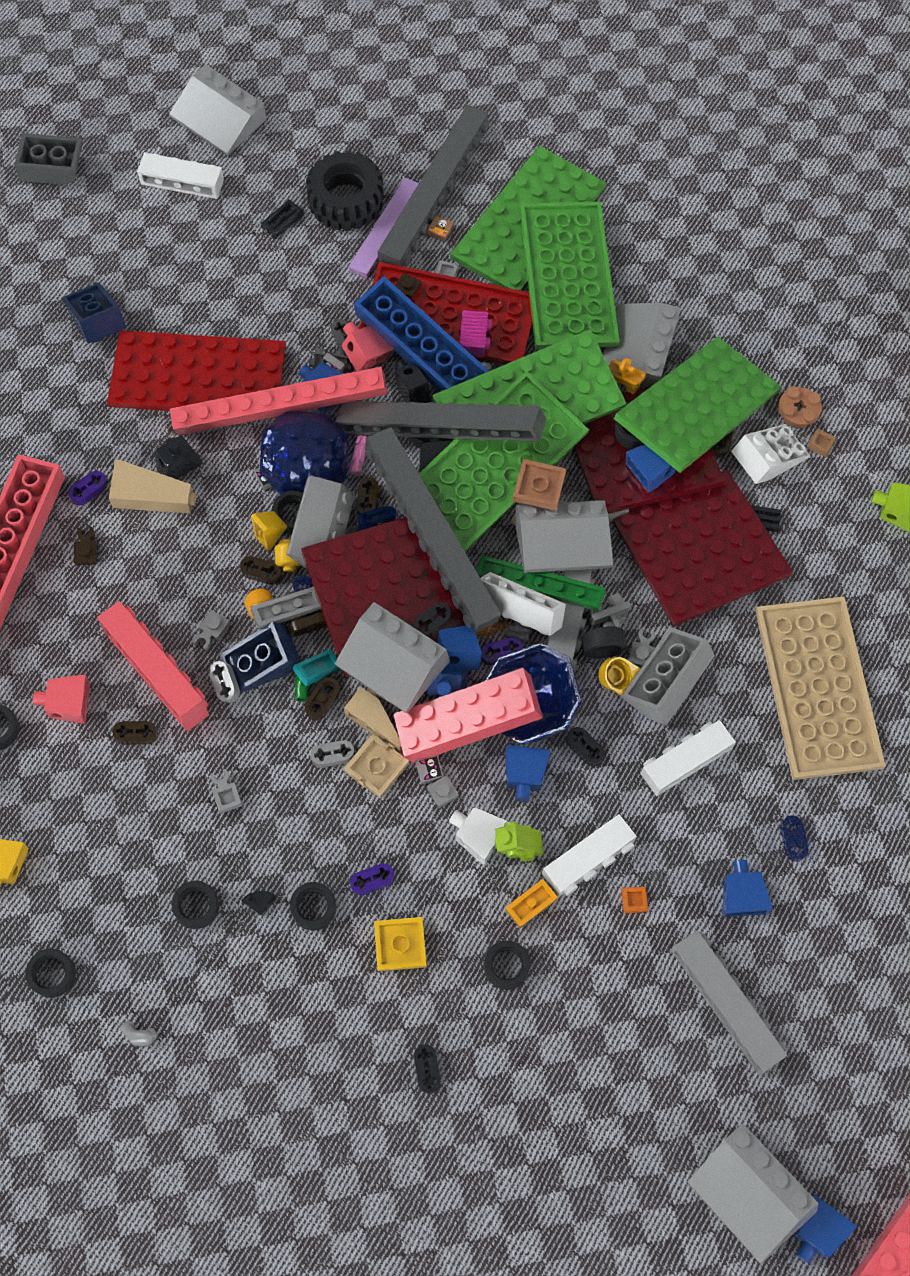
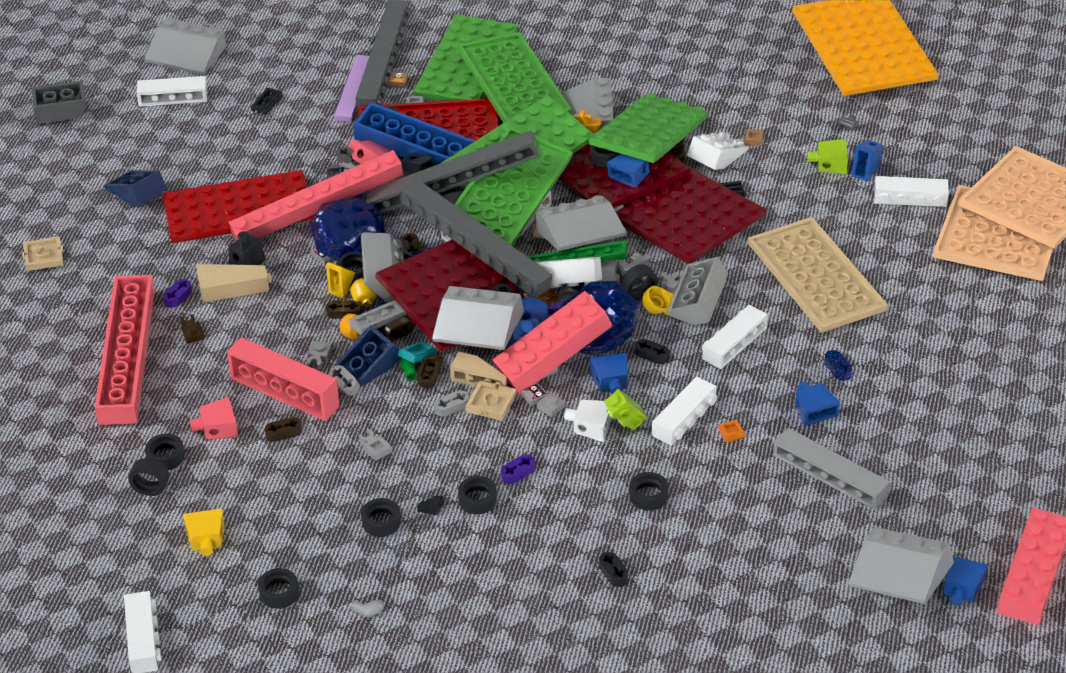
camera: 15 degrees left, 25 degrees down
(342, 170) = (312, 69): black tyre -> none
(358, 456) = (393, 223): bright pink axle -> none
(400, 944) = (558, 499): yellow plate -> none
(473, 332) = (456, 123): dark pink brick -> none
(531, 903) = (651, 450): light orange plate -> none
(539, 484) = (548, 191): nougat plate -> none
(805, 397) = (722, 115): nougat plate -> none

